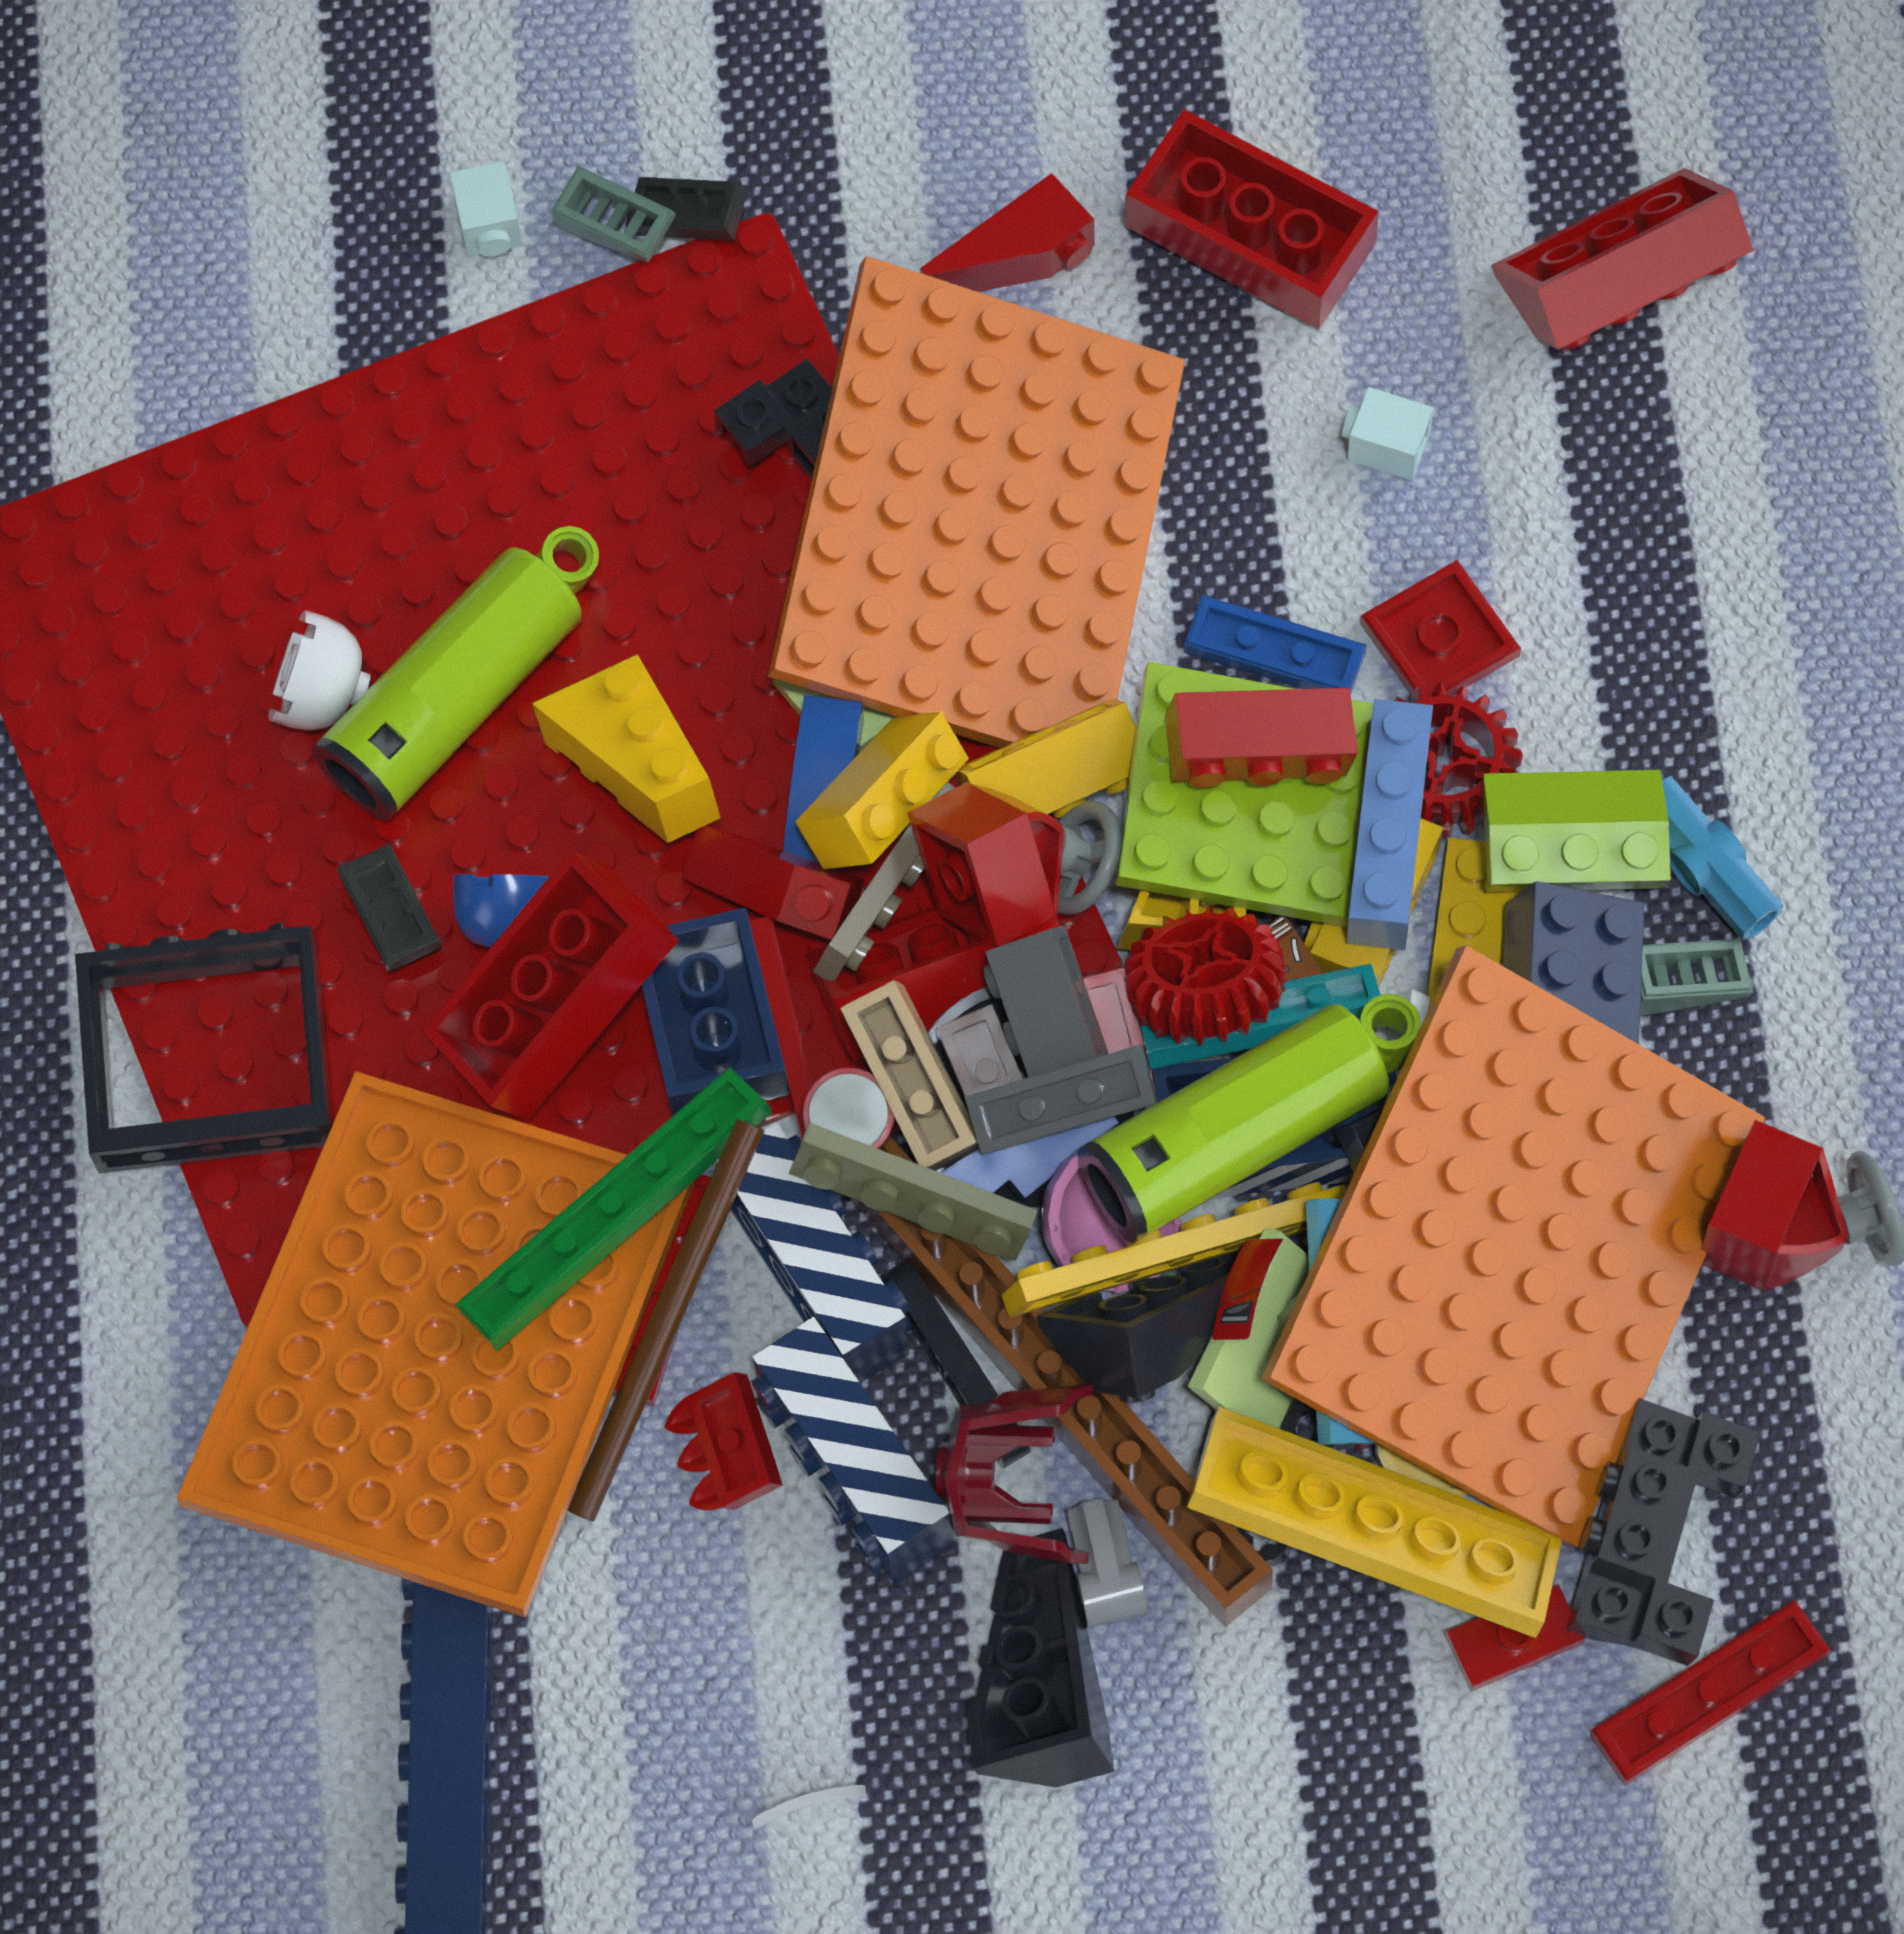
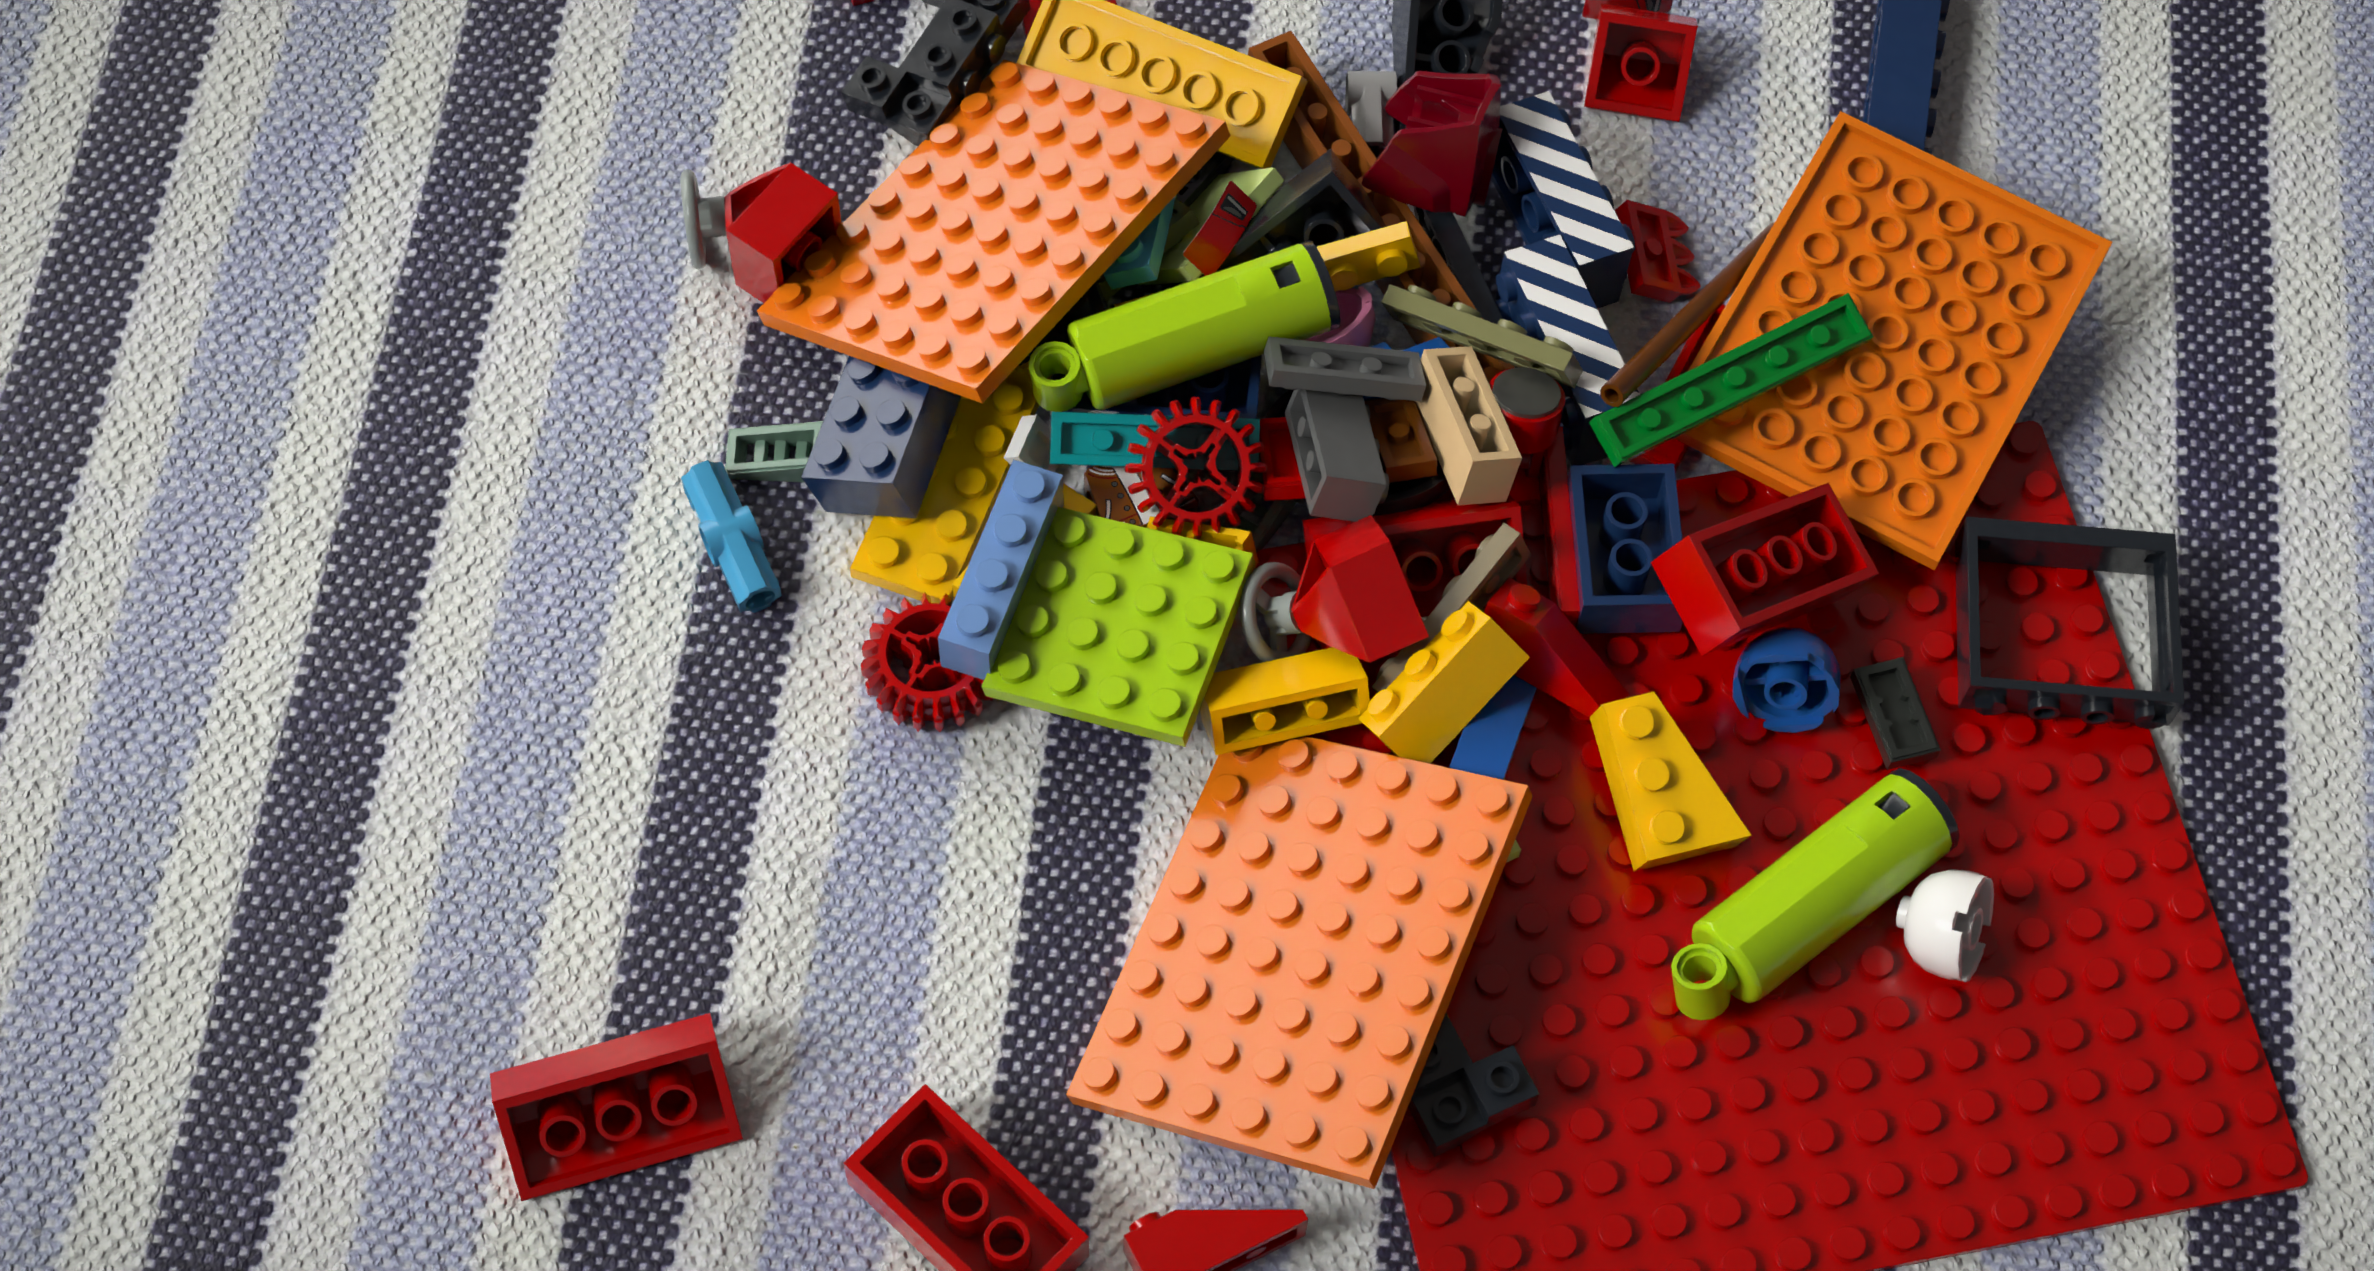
camera: 175 degrees left, 5 degrees down
(781, 1718) = (1640, 62): none -> red slope
(1261, 736) = (1099, 633): red brick -> none
(1272, 647) = (1052, 805): blue tile -> none
(1388, 433) = (893, 973): light aqua brick -> none
(1440, 633) = (900, 786): red tile -> none
(1576, 830) = (840, 543): lime slope -> none

